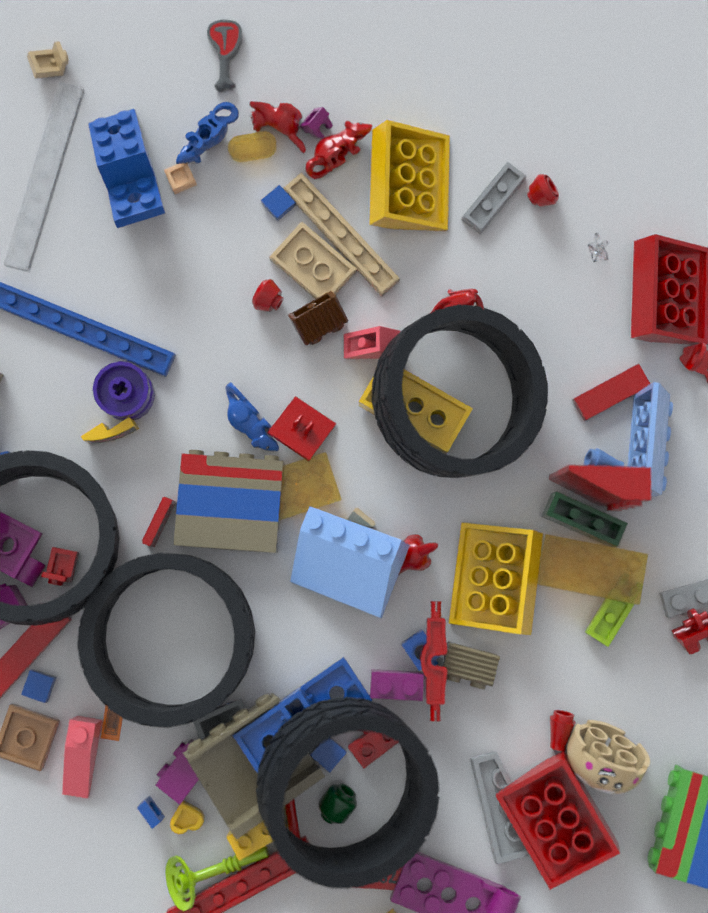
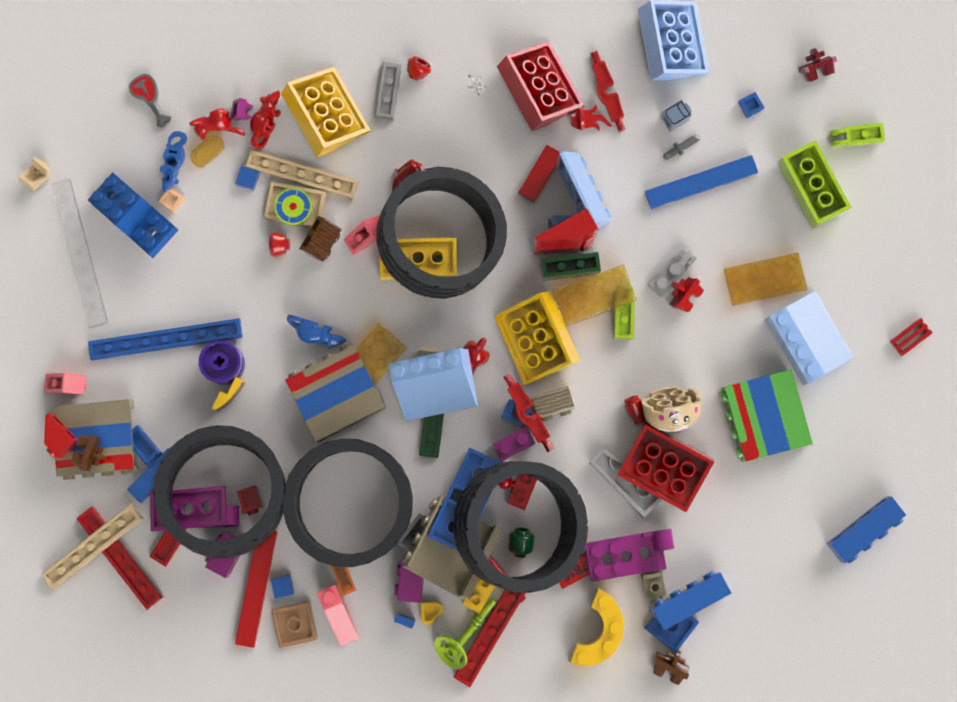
camera: 30 degrees left, 0 degrees up
(158, 522) = (296, 433): red tile -> none
(301, 428) = (353, 317): red piece -> none
(308, 617) = (431, 436): none -> dark green tile
(309, 264) = (293, 206): none -> tile
(328, 754) = (496, 515): blue tile -> none

